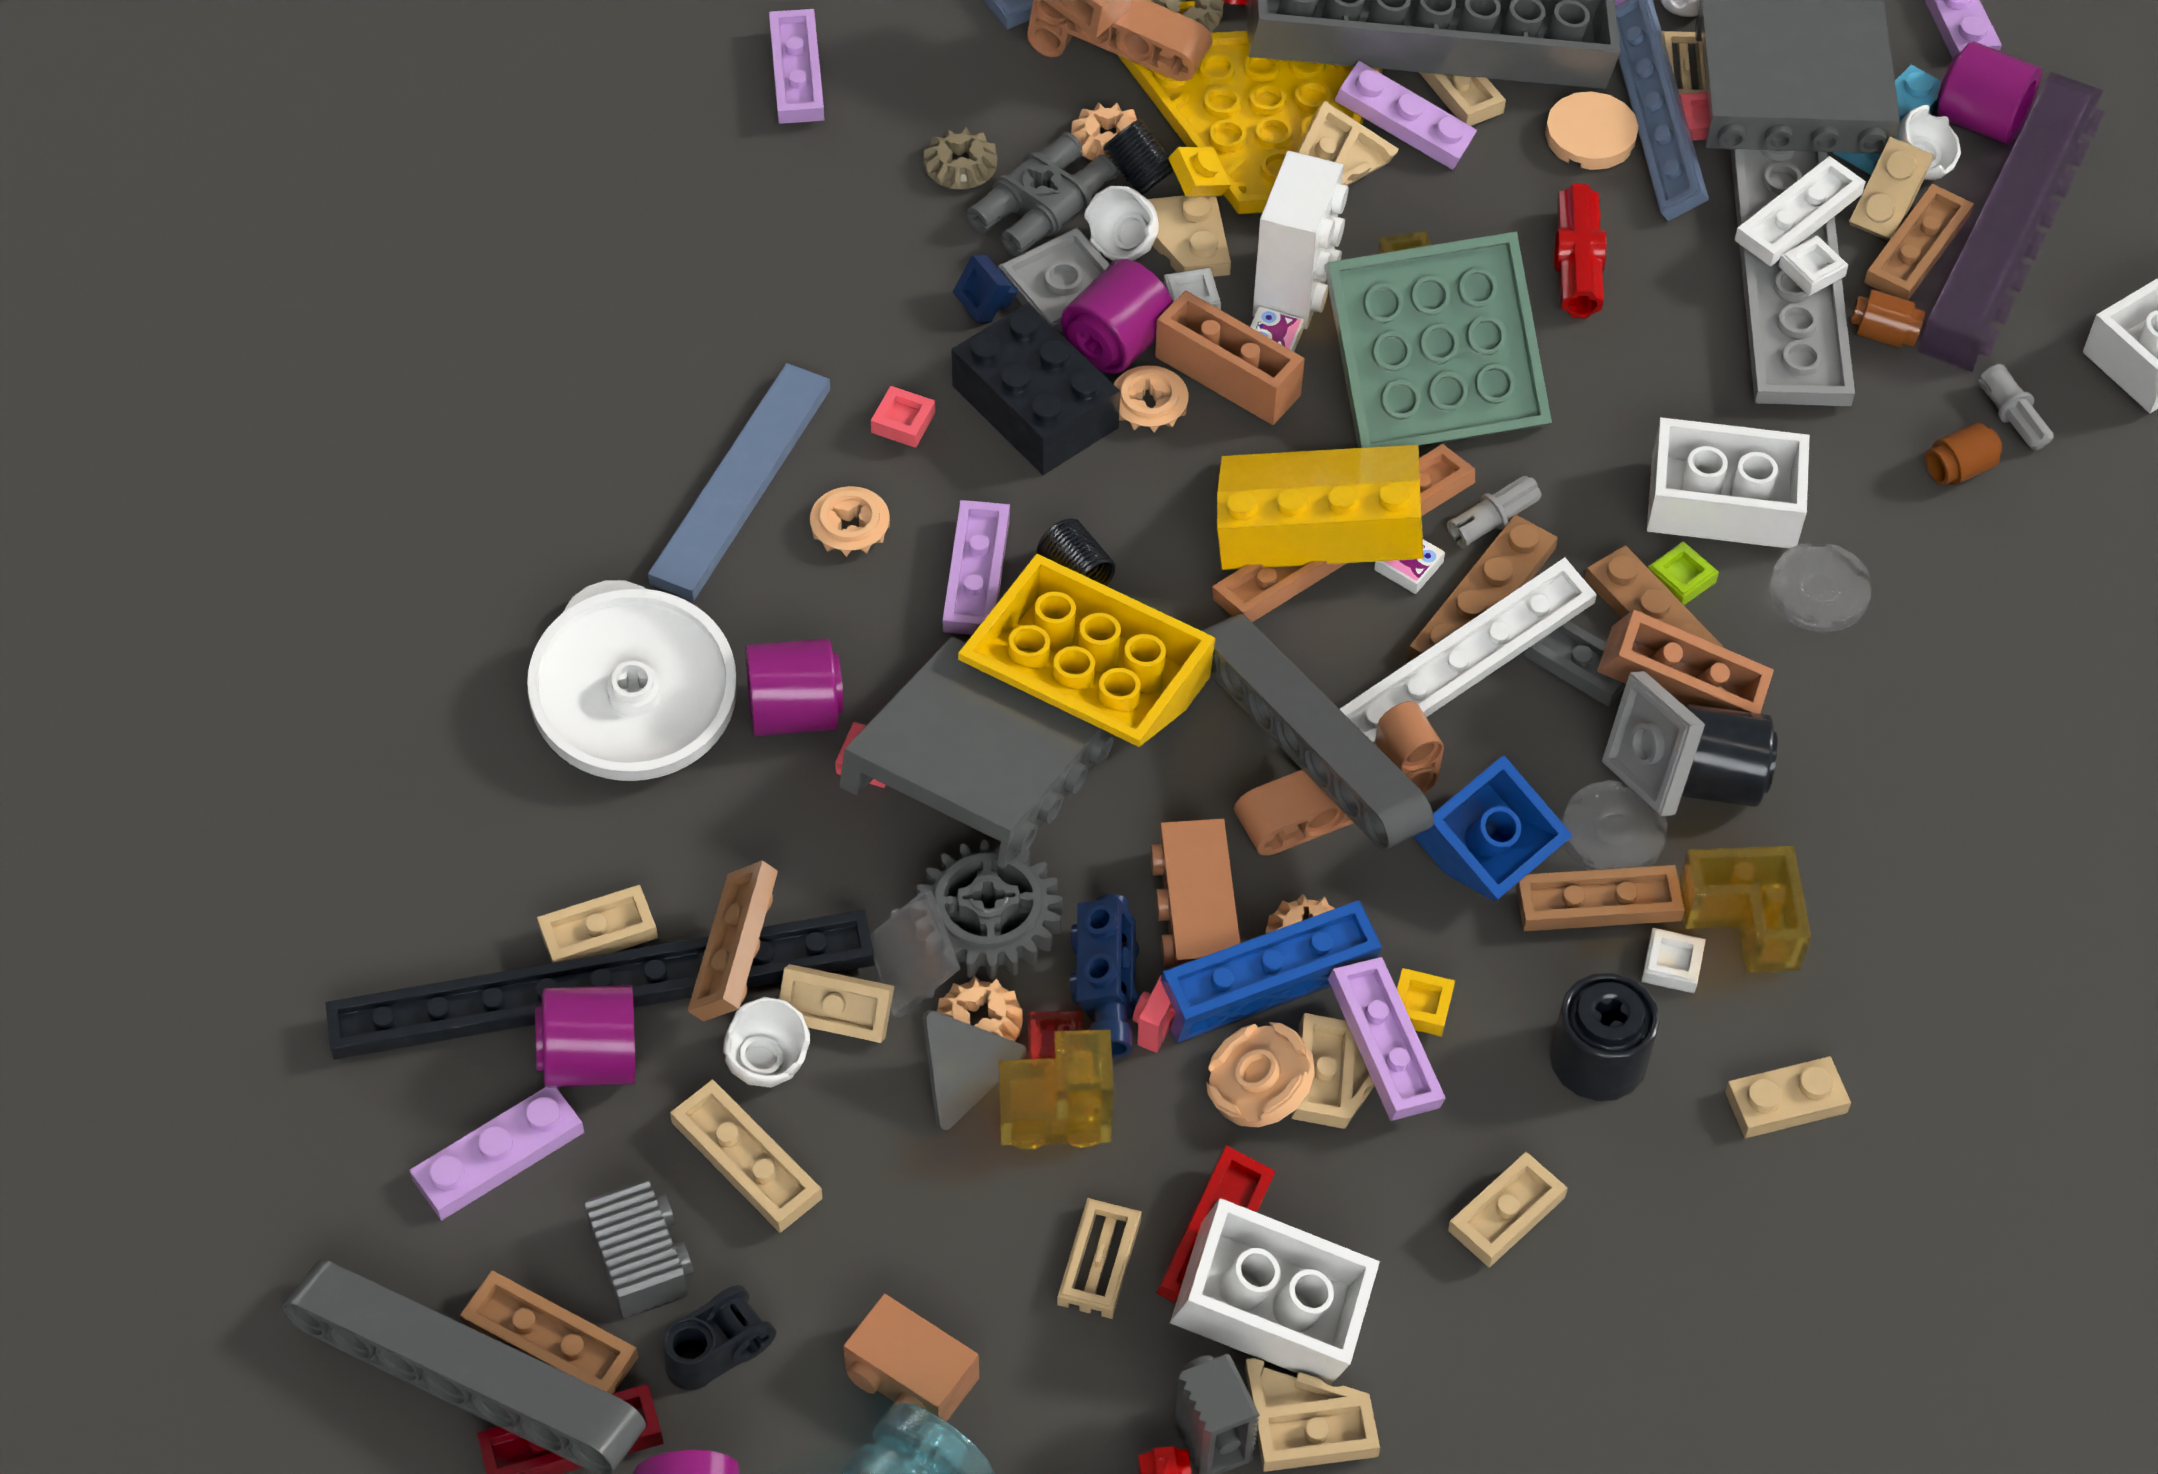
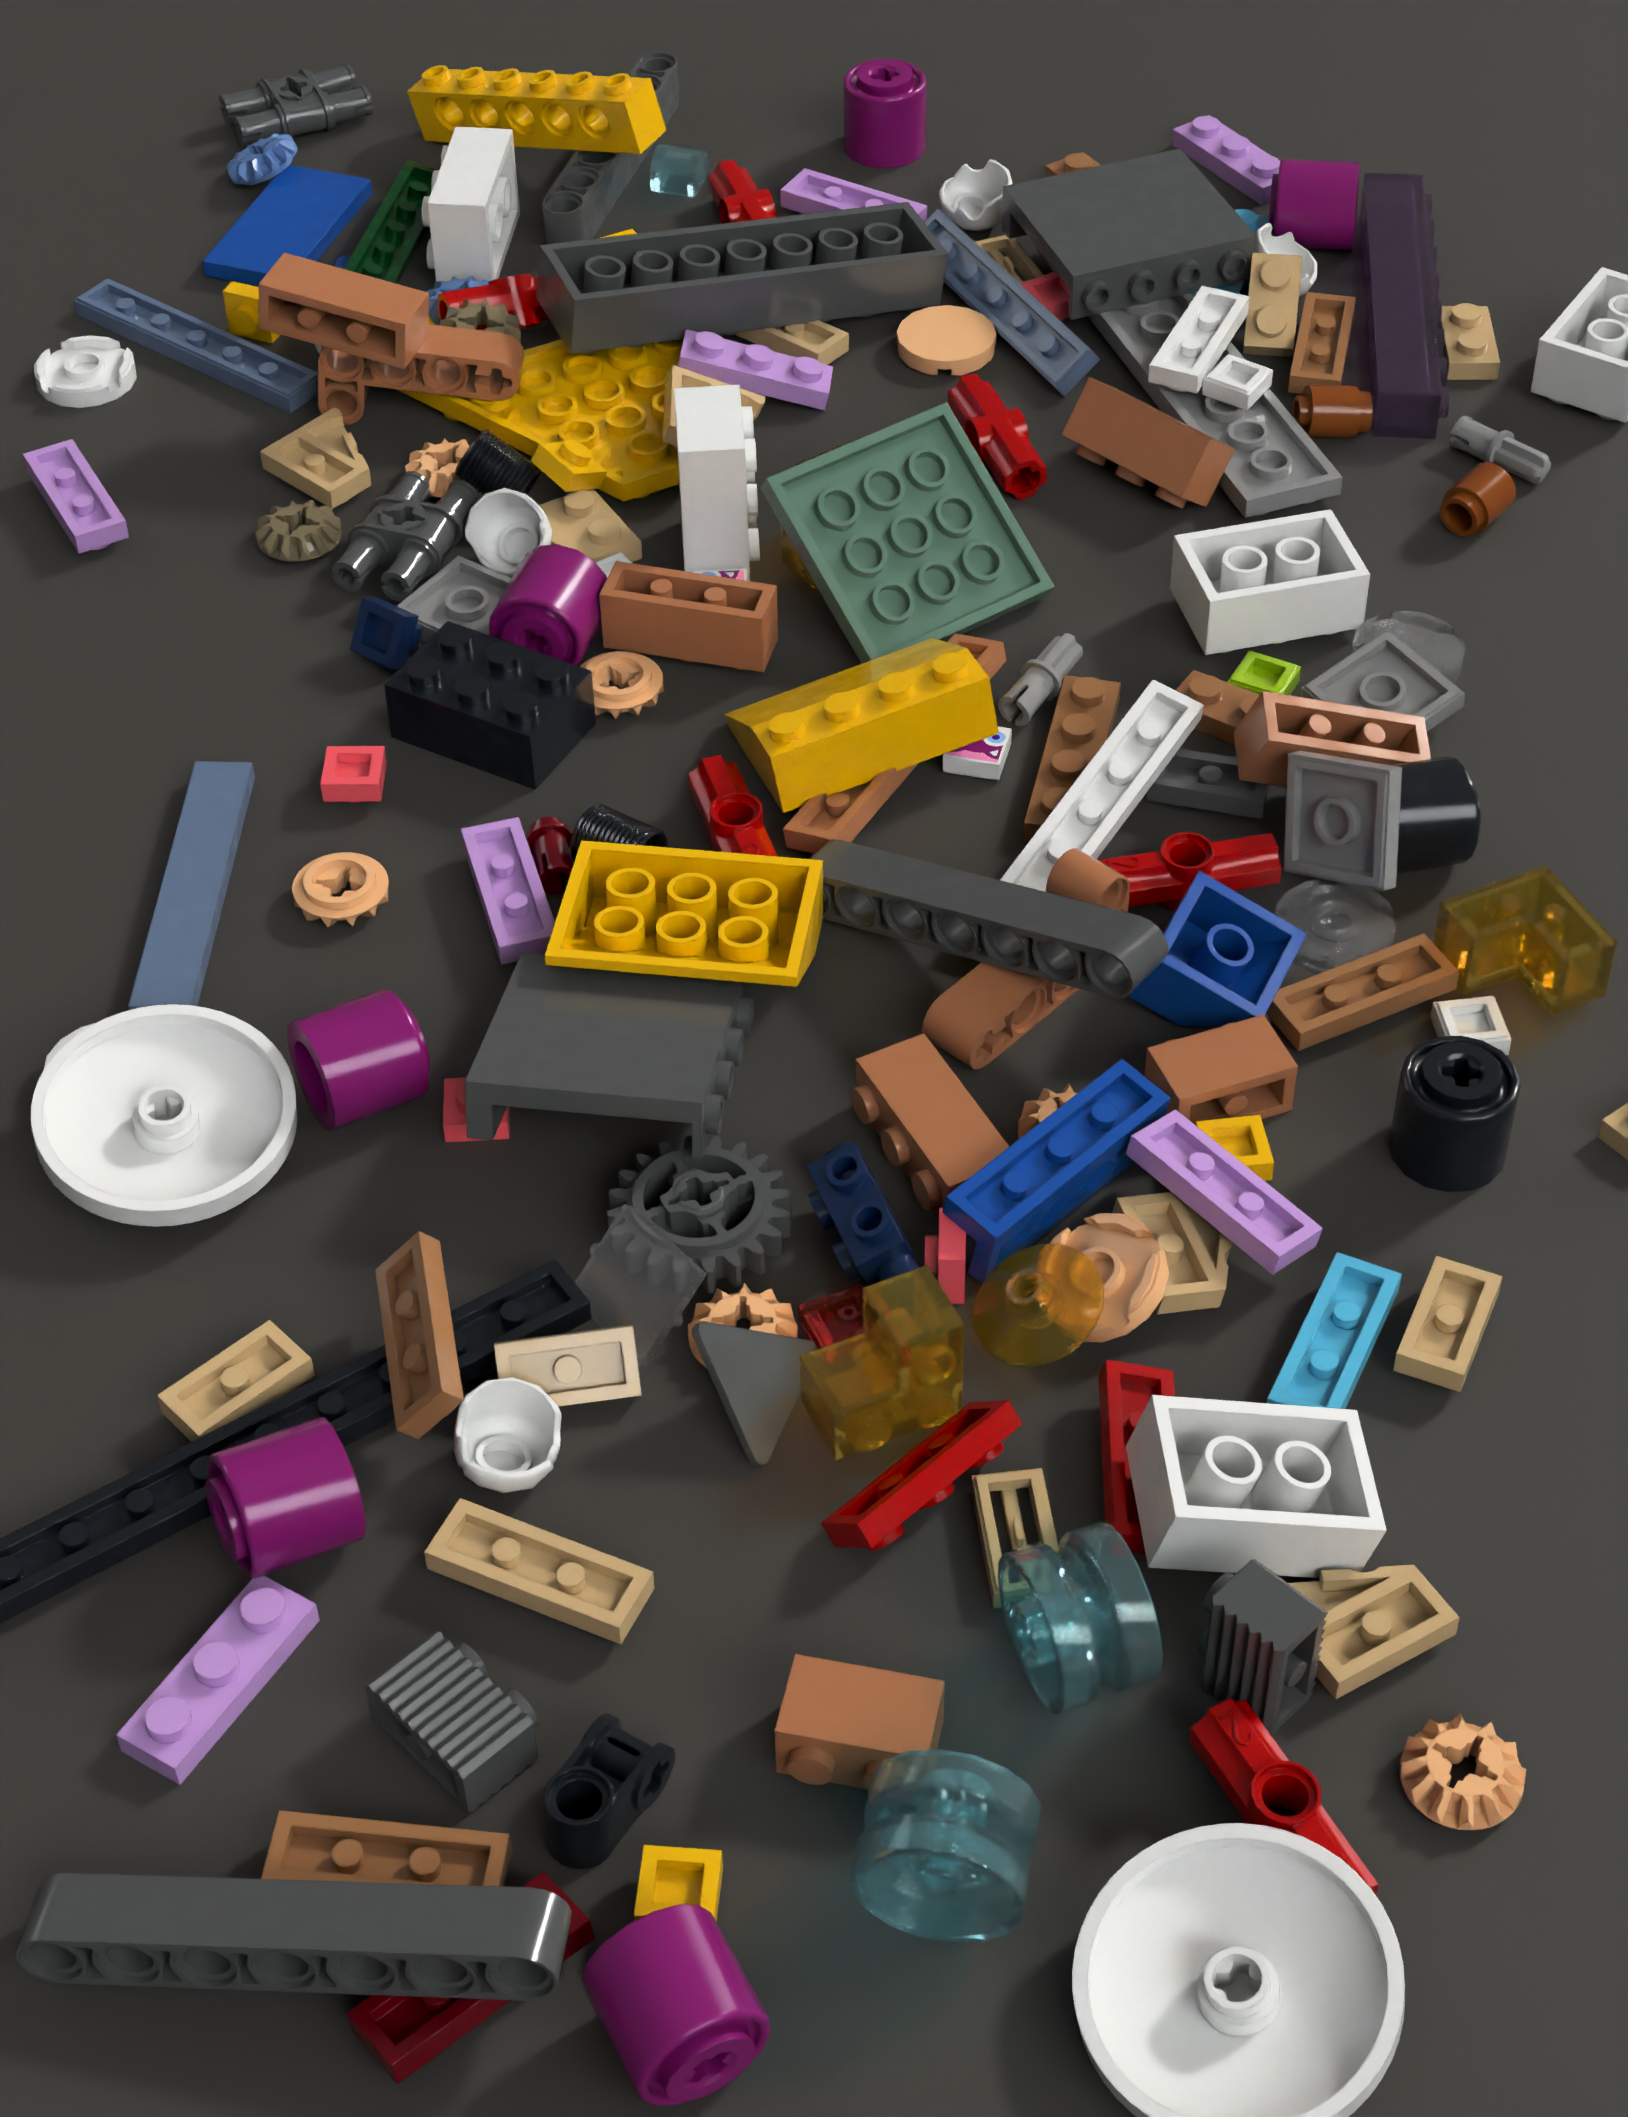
camera: 20 degrees left, 10 degrees down
(734, 1430) = (678, 1877): none -> yellow plate
(1006, 92) = (320, 460): none -> tan wing
(1024, 537) = (550, 845): none -> dark red pin
(1050, 1185) = (922, 1476): none -> red plate
(1095, 1343) = (1080, 1617): none -> clear light blue wheel
(1177, 562) = (728, 809): none -> red piece
(1212, 1092) = (1050, 1320): none -> clear yellow dish
(1411, 1193) = (1337, 1335): none -> medium azure plate
(1443, 935) = (1225, 1072): none -> nougat brick
(1538, 743) = (1168, 873): none -> red piece
(1700, 305) = (1146, 445): none -> nougat brick
(1772, 622) = (1388, 678): none -> light grey tile
(2055, 280) = (1469, 343): none -> tan plate

